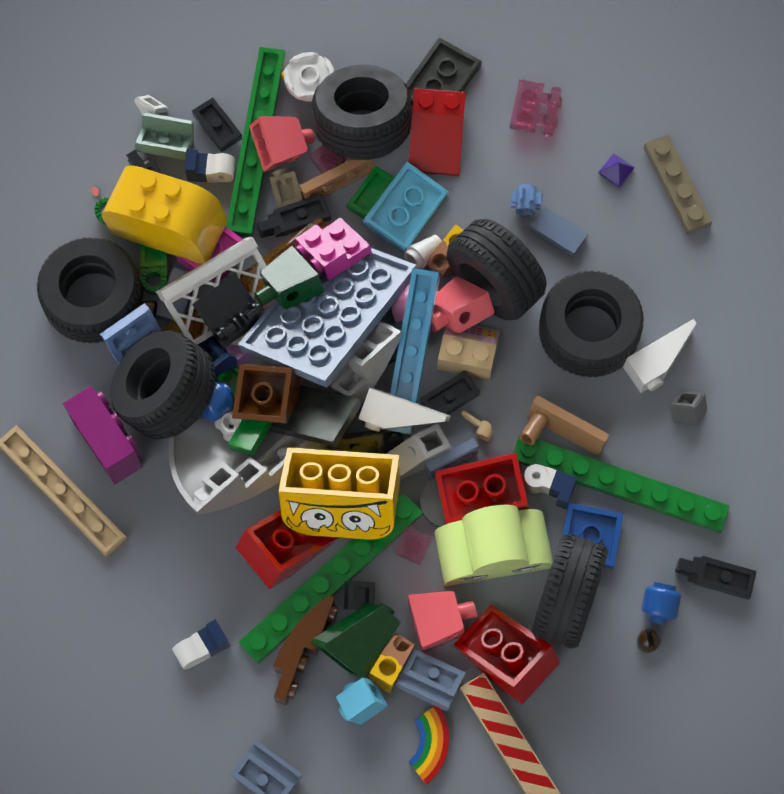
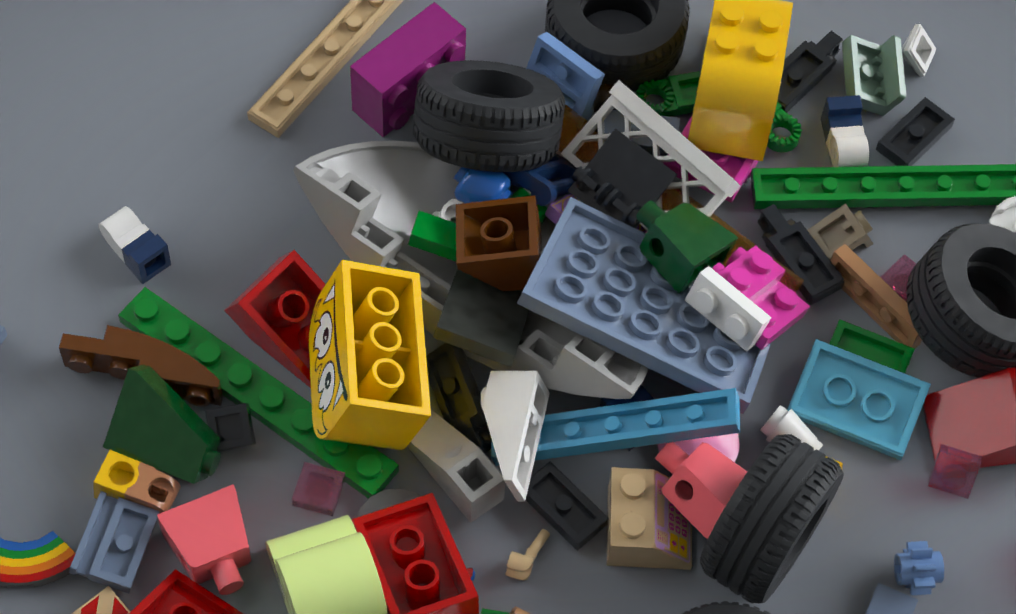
camera: 75 degrees right, 10 degrees down
(279, 140) = (909, 208): coral torso -> none
(345, 263) = (727, 308): none -> white plate
(361, 701) = (70, 449): medium azure brick -> none
(452, 458) = (464, 522): sand blue tile -> none
(465, 164) = (954, 471): none -> clear pink plate

